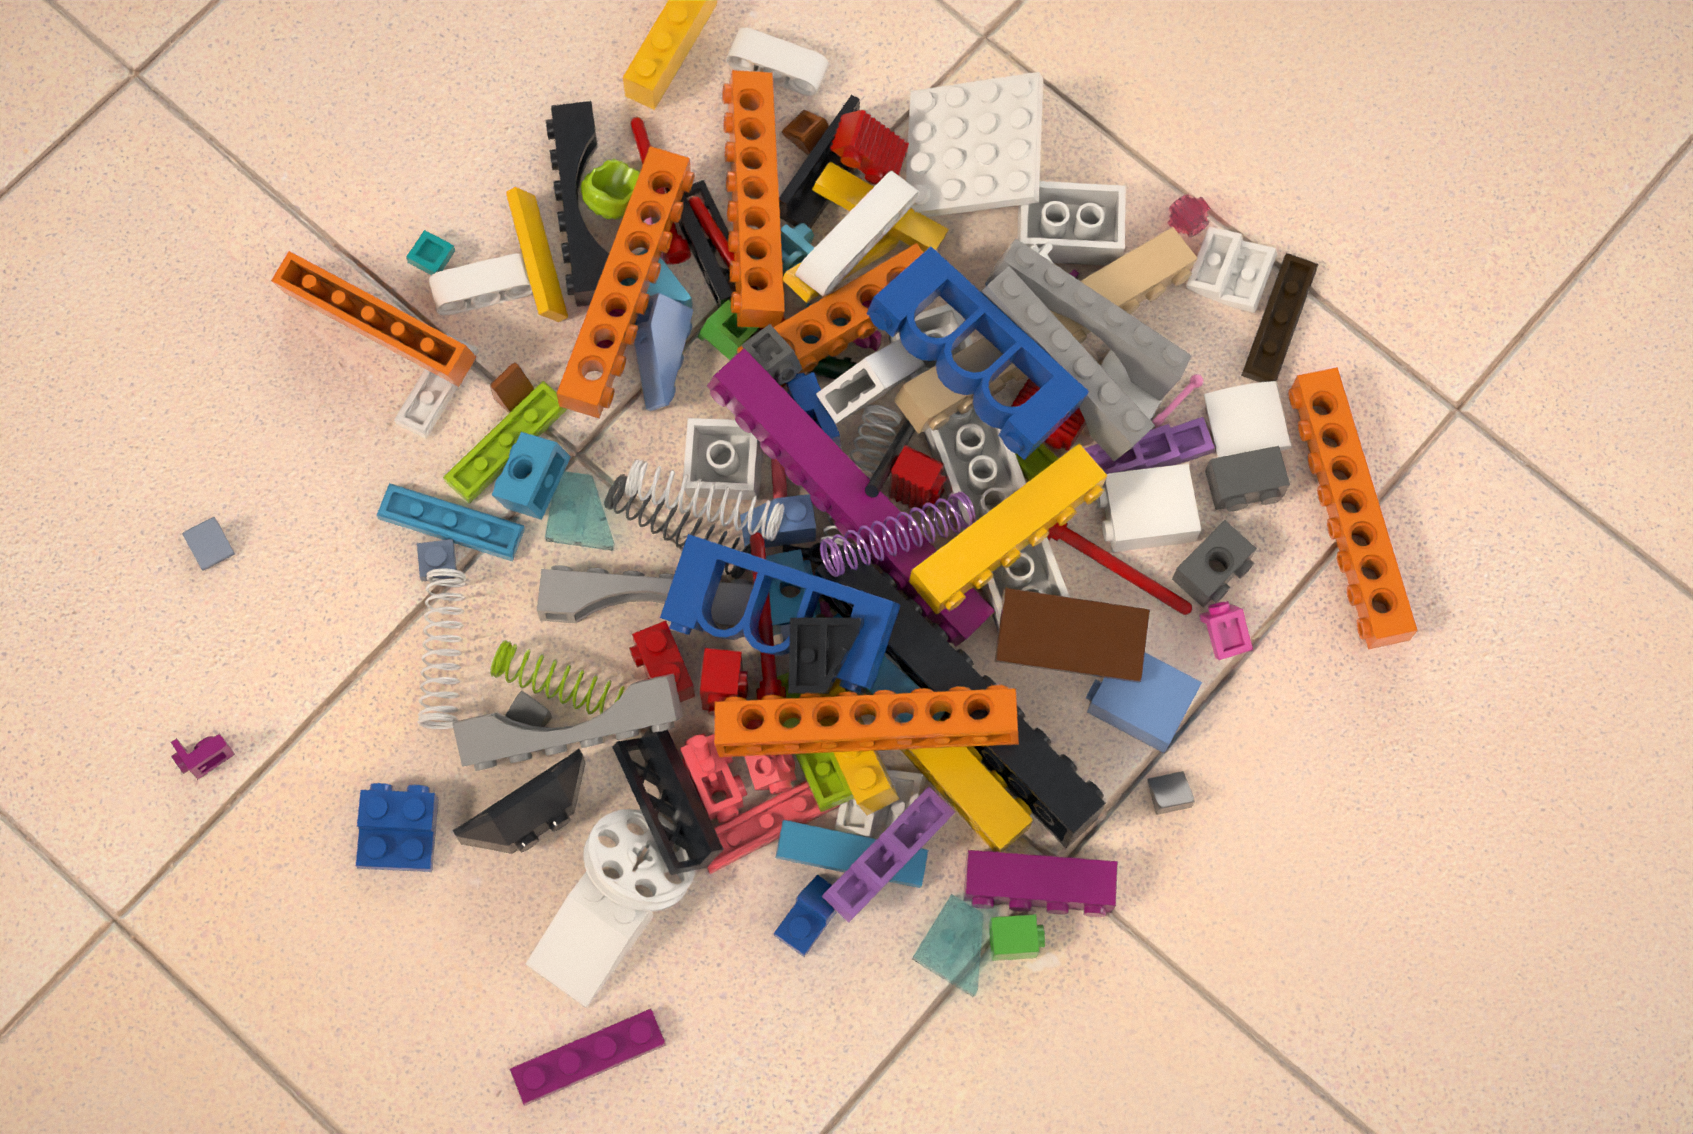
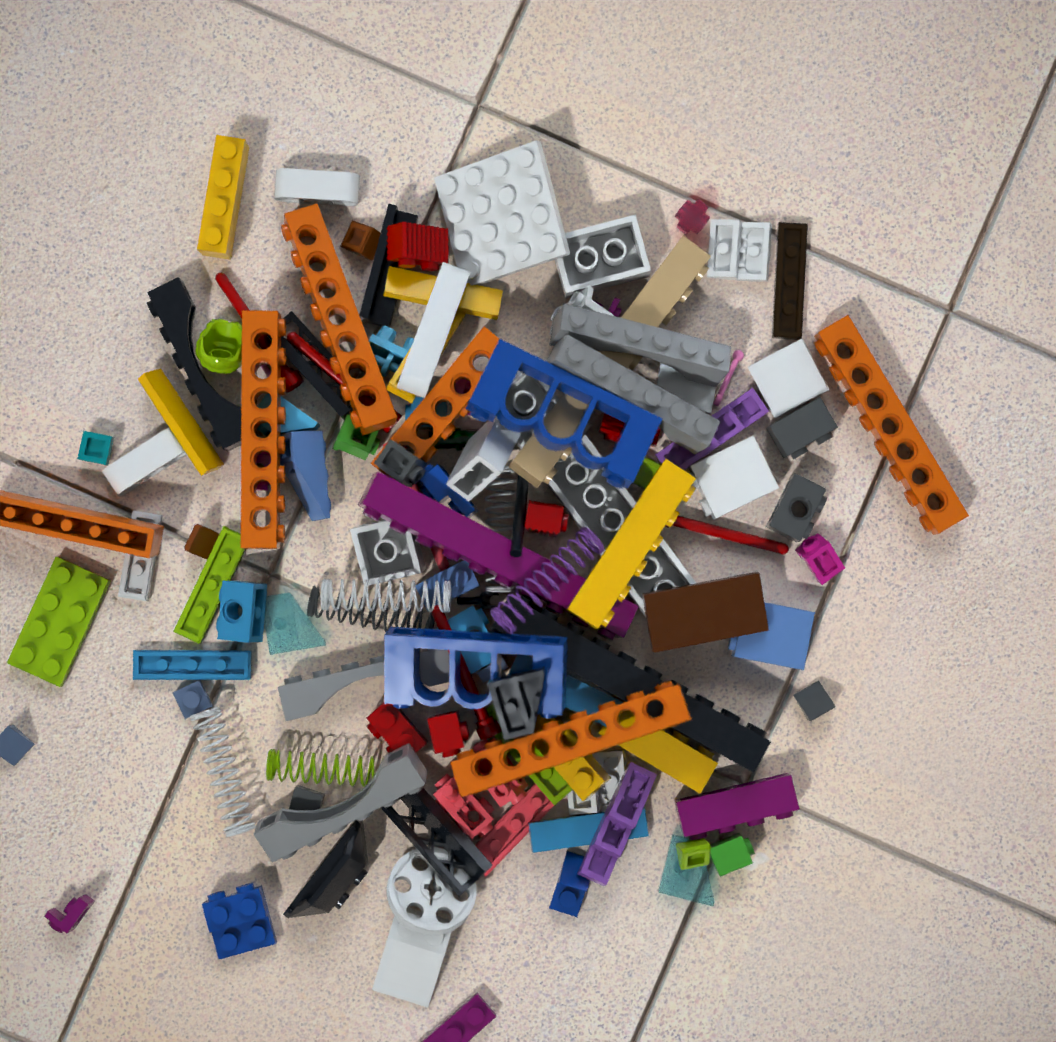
camera: 15 degrees left, 15 degrees up
(316, 427) = (58, 621): none -> lime plate
(970, 920) = (693, 853): none -> lime slope

